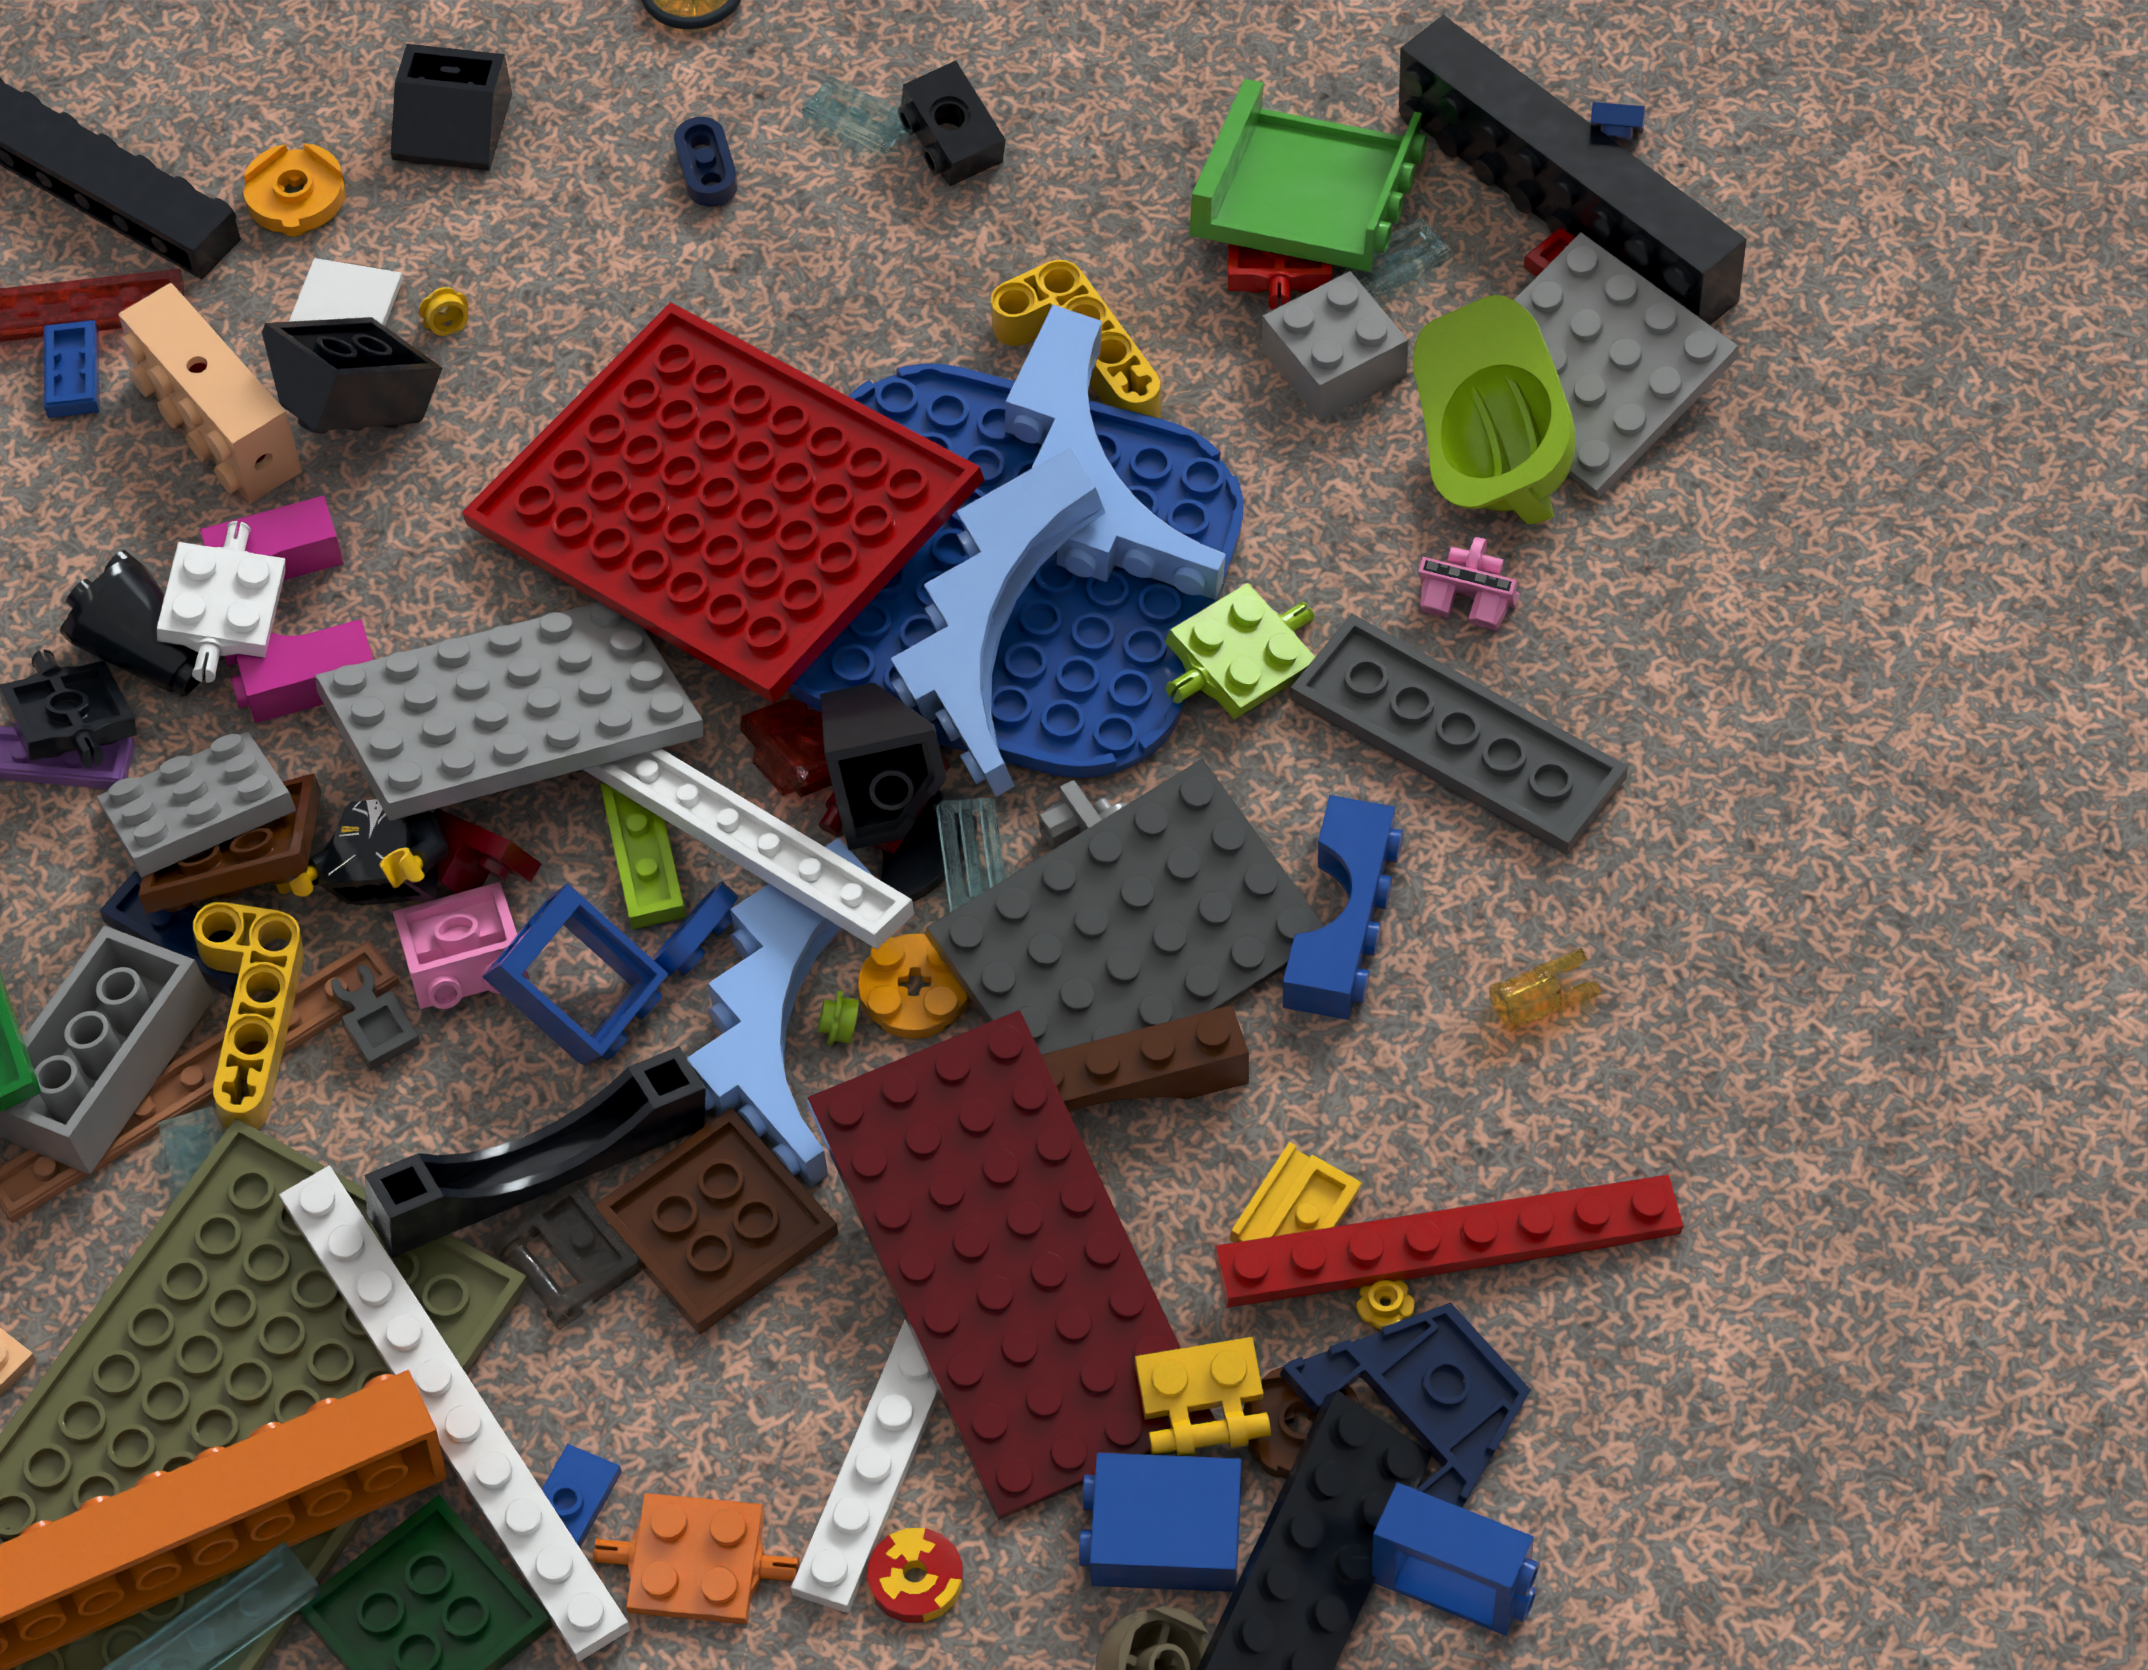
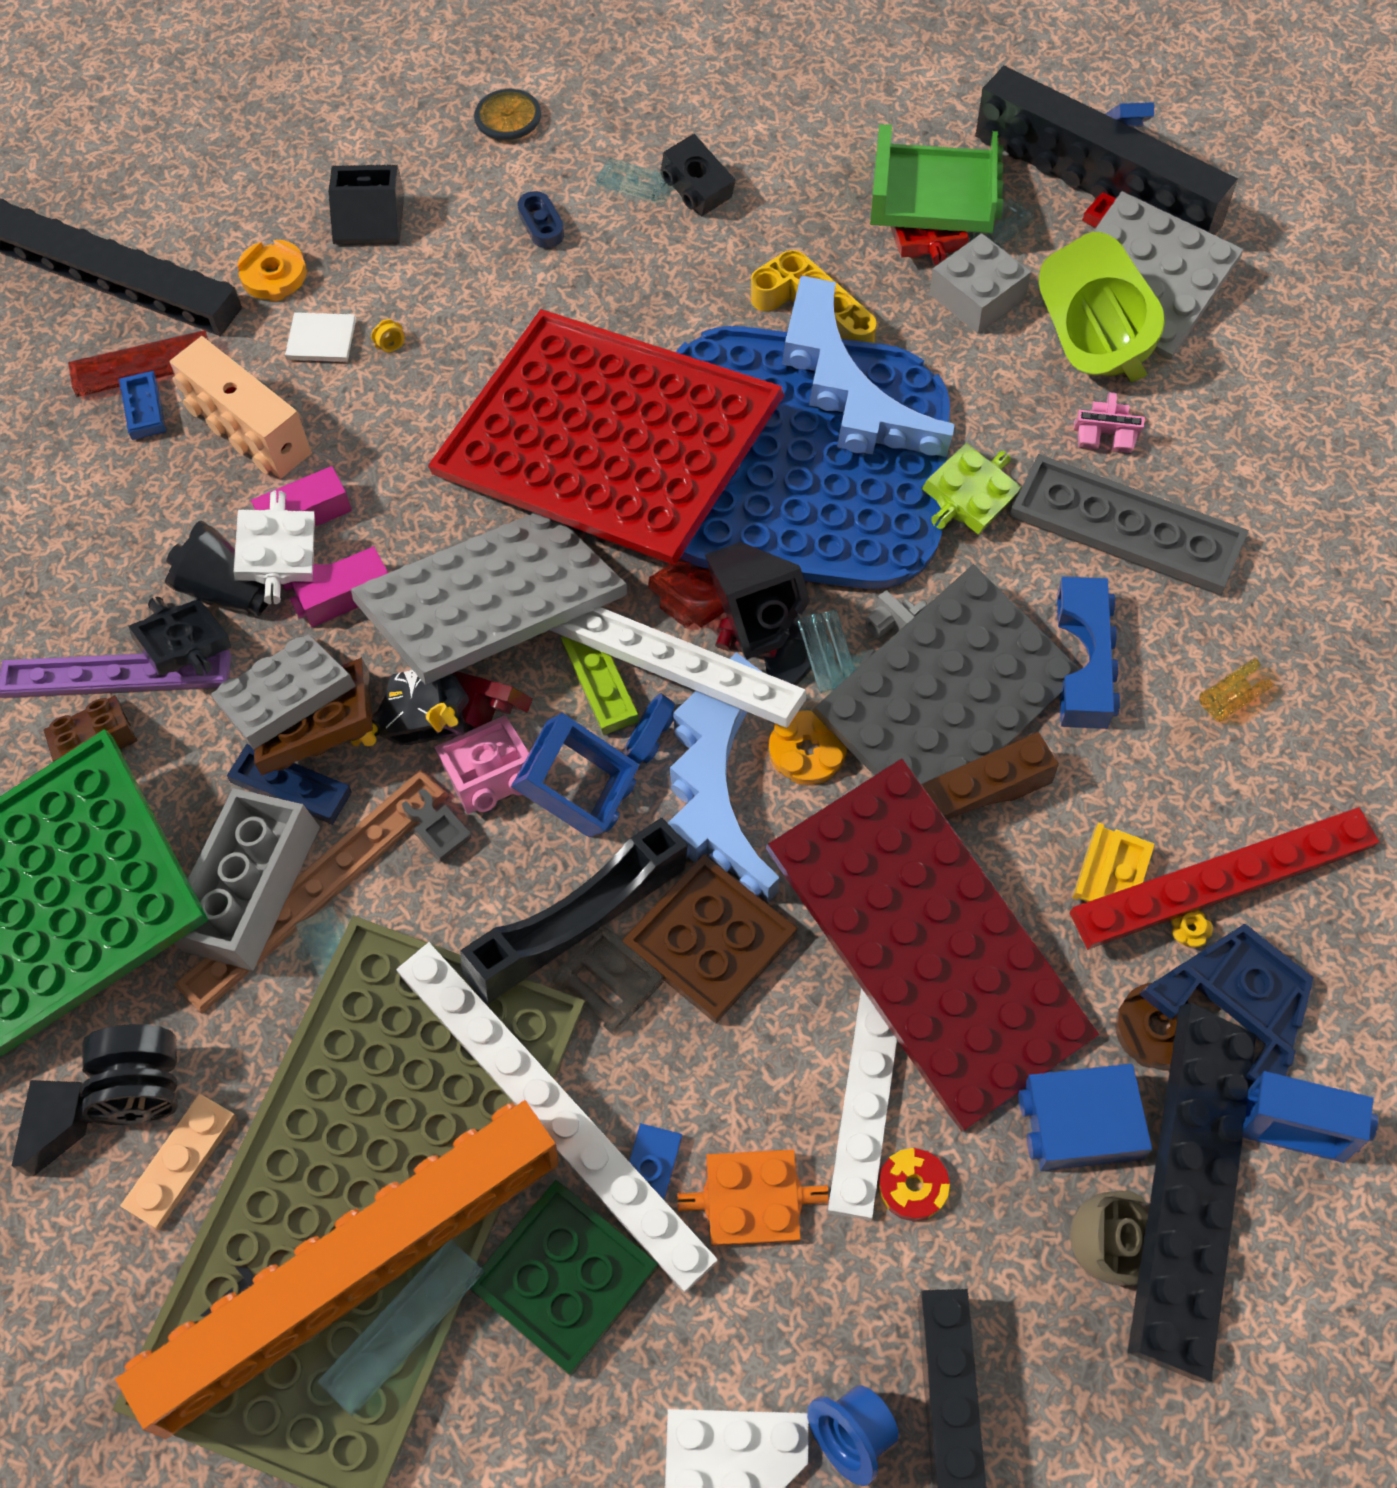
camera: 10 degrees left, 5 degrees up
(249, 1019) = (348, 840): yellow beam -> none
(348, 374) = (333, 382): black slope -> none
(838, 1018) = (762, 778): lime plate -> none
(1006, 544) = (808, 434): light blue arch -> none
(1199, 1380) = (1088, 1007): yellow plate -> none

